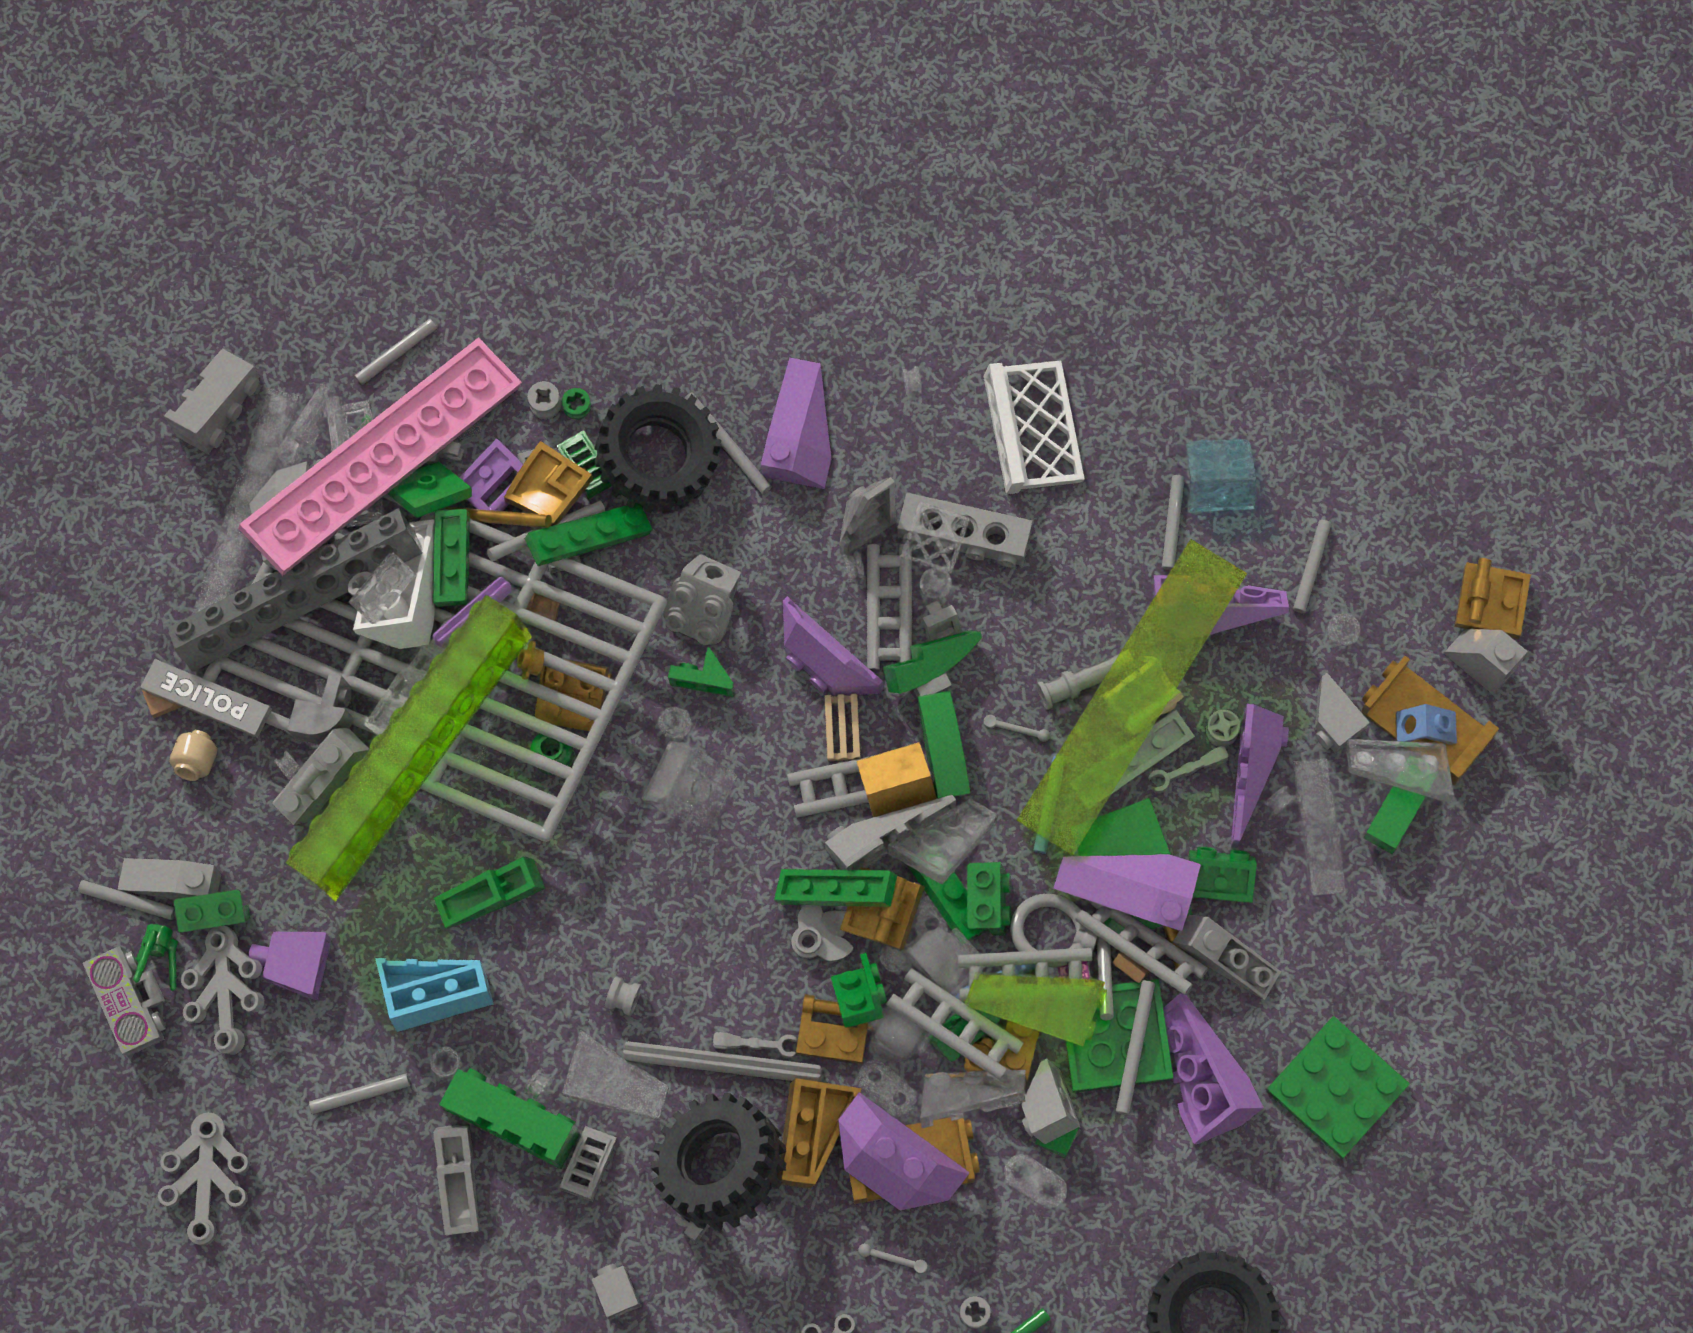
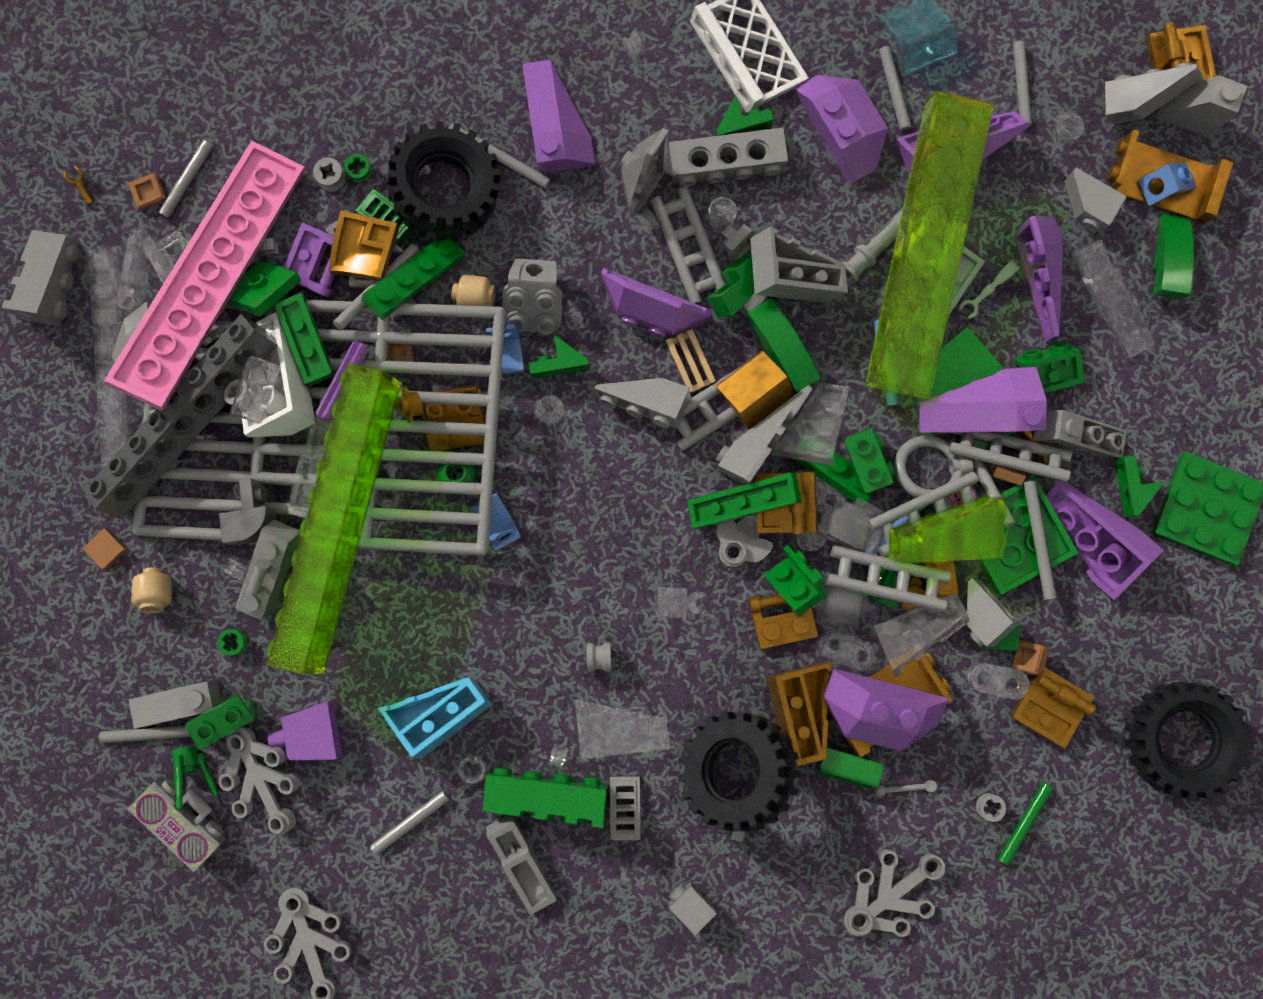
camera: 25 degrees left, 10 degrees up
(206, 698) = (142, 538): light grey tile -> none
(242, 838) = (223, 643): none -> green bush
(286, 319) = (79, 185): none -> pearl gold hand
(351, 350) = (147, 191): none -> medium nougat tile
(489, 892) = (451, 612): green slope -> none
(508, 518) = (340, 287): pearl gold bar -> none
(575, 818) = (500, 524): none -> medium blue bracket
(644, 572) = (473, 291): none -> tan head
(658, 648) = (512, 351): none -> medium blue bracket
(689, 786) = (583, 459): clear slope -> none
(720, 1062) = (702, 680): light grey axle -> none
(724, 969) = (674, 602): none -> clear plate
(730, 1041) = (703, 660): light grey piece -> none
(787, 750) = (651, 398): none -> light grey slope
(838, 1211) = (850, 769): none -> green slope
(957, 544) = (708, 147): clear window -> none
(983, 497) = (734, 122): none -> green slope
(983, 672) = (794, 272): none -> light grey wedge
(990, 722) = (810, 310): light grey hinge -> none
(1078, 1169) = (1030, 658): none -> medium nougat tile
(1082, 1230) = (1053, 707): none -> pearl gold plate
(1105, 539) = (845, 122): none -> medium lavender wedge
(1225, 722) = (1009, 241): light grey wheel -> none
(1260, 1039) = (1133, 493): none -> green slope
(1280, 801) = (1074, 289): clear bush -> none
(1405, 765) = (1168, 221): clear wing -> none
(1430, 623) = (1138, 96): none -> light grey slope

